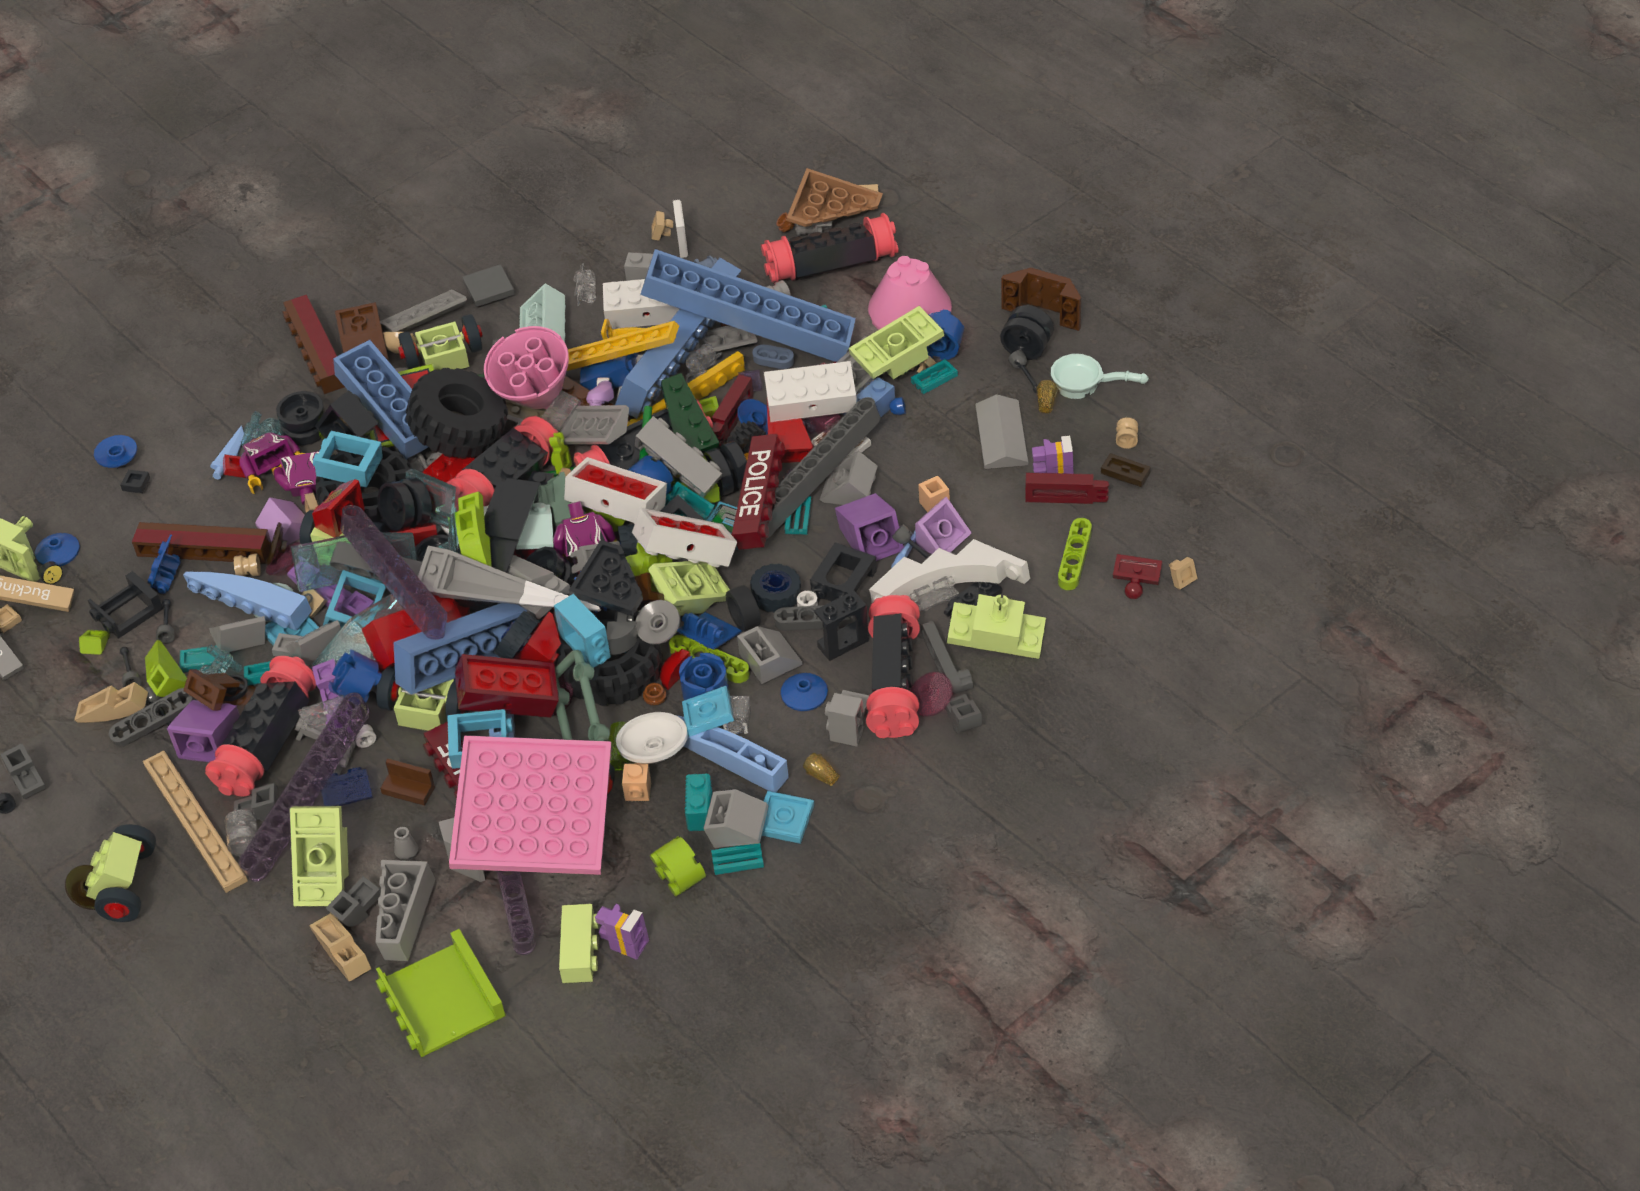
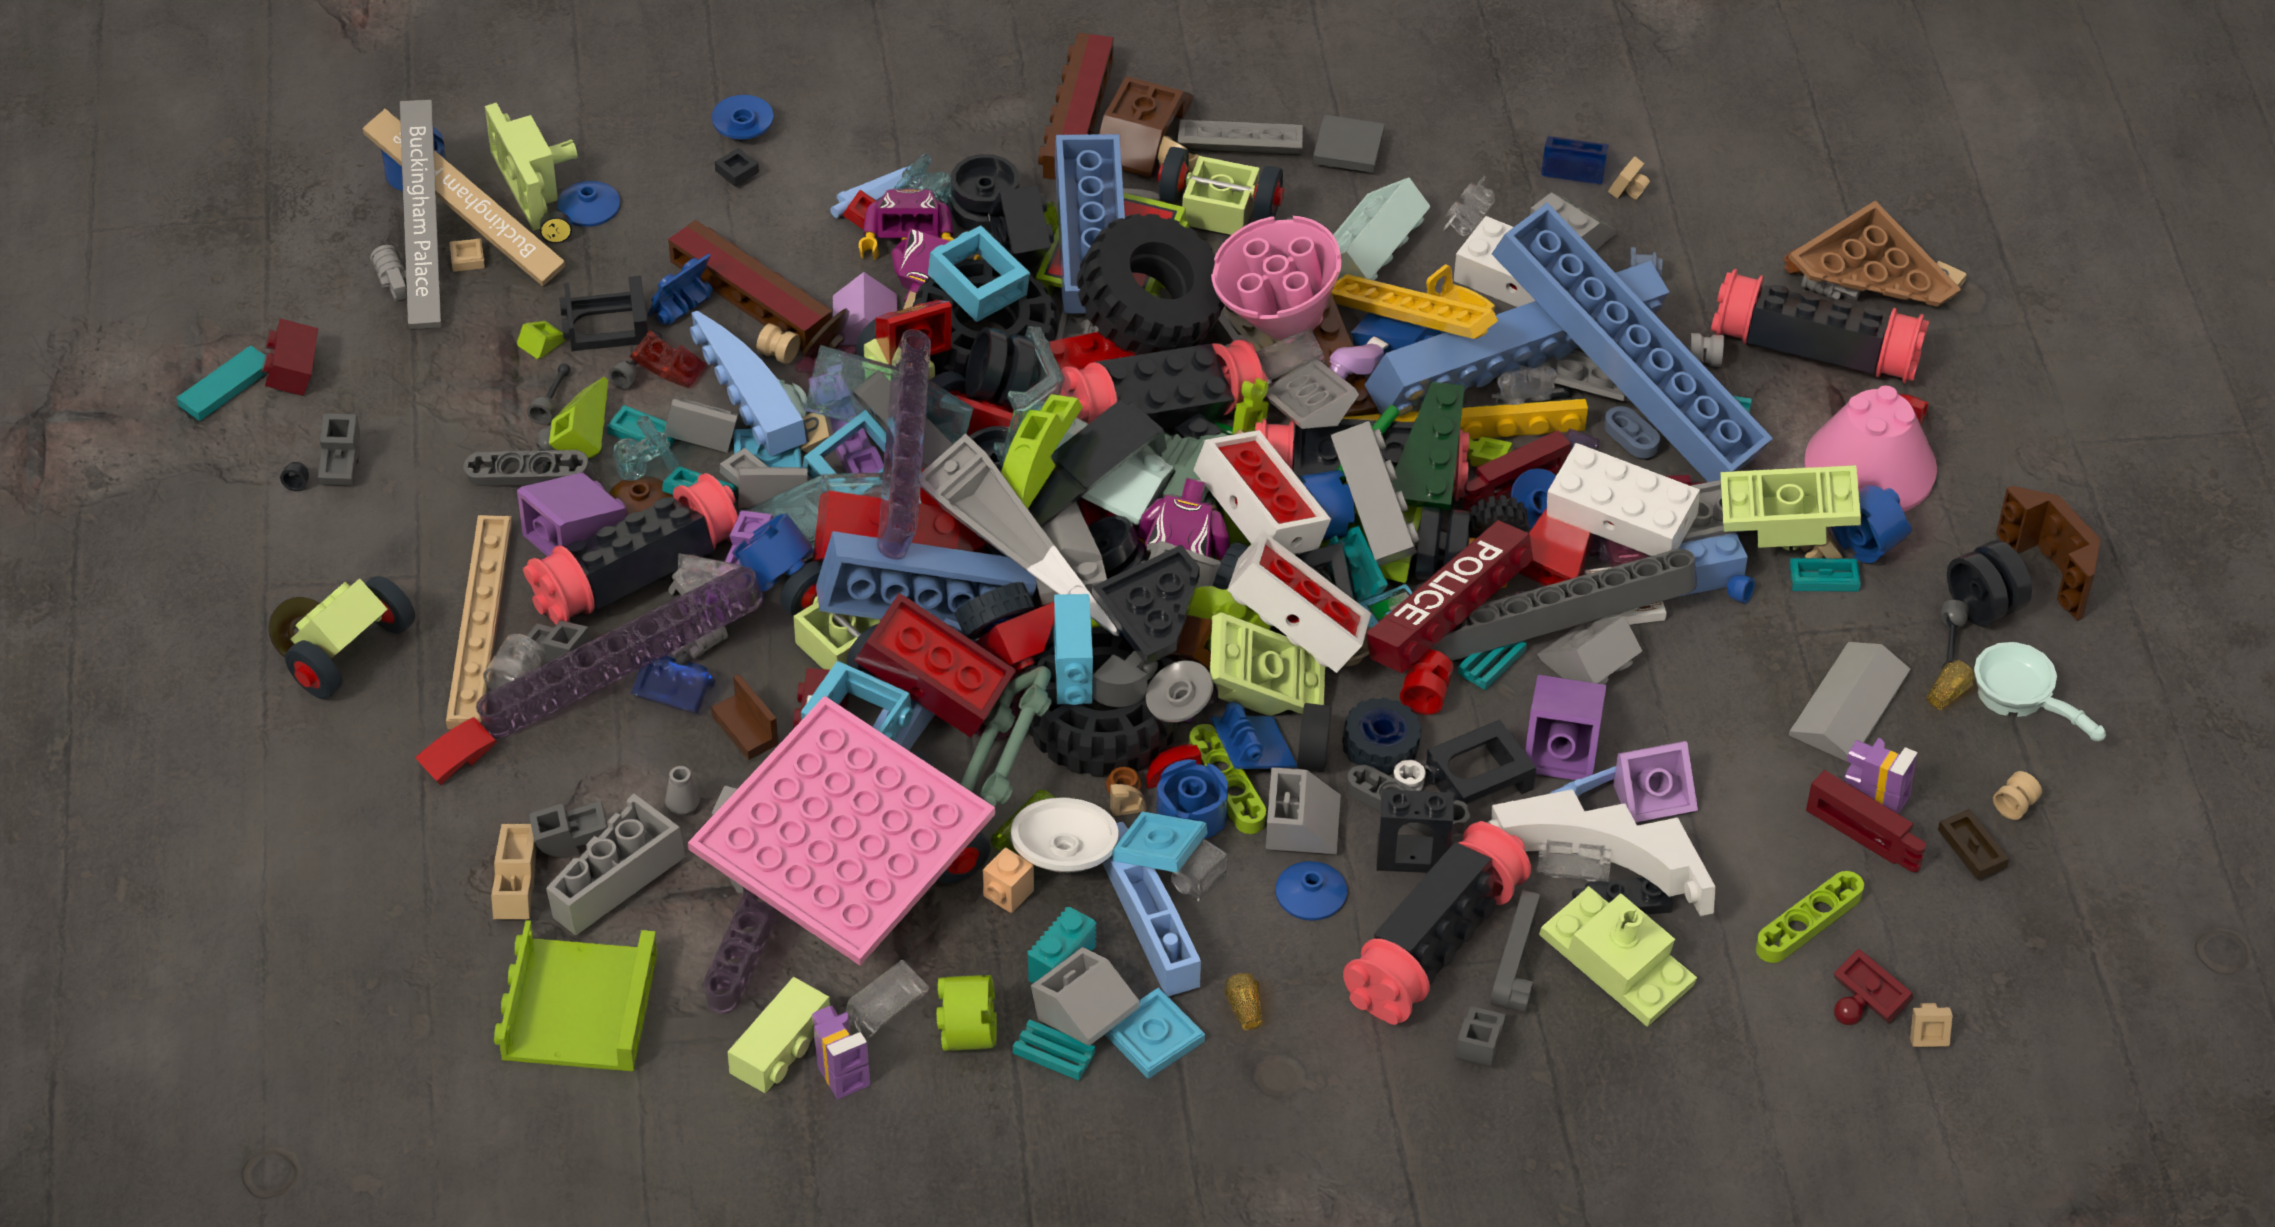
camera: 30 degrees right, 0 degrees up
(111, 704) = (497, 426): tan slope -> none
(190, 612) = (673, 365): none -> clear red slope
(211, 688) = (606, 467): reddish brown piece -> none
(244, 900) = (455, 748): none -> red slope
(318, 854) = (566, 743): yellowish green brick -> none
(365, 737) = (744, 632): white bush -> none
(621, 230) = (1574, 159): none -> clear blue bracket
(623, 885) = (885, 998): none -> clear hinge
(664, 701) = (1126, 800): none -> tan tile
(680, 228) = (1646, 196): white tile -> none
(778, 547) = (1427, 683): none -> red wheel
(846, 717) = (1324, 950): light grey brick -> none
(903, 536) = (1592, 761): dark grey hinge -> none
(932, 492) = (1683, 724): light nougat brick -> none
(936, 697) = (1462, 987): clear pink dish -> none

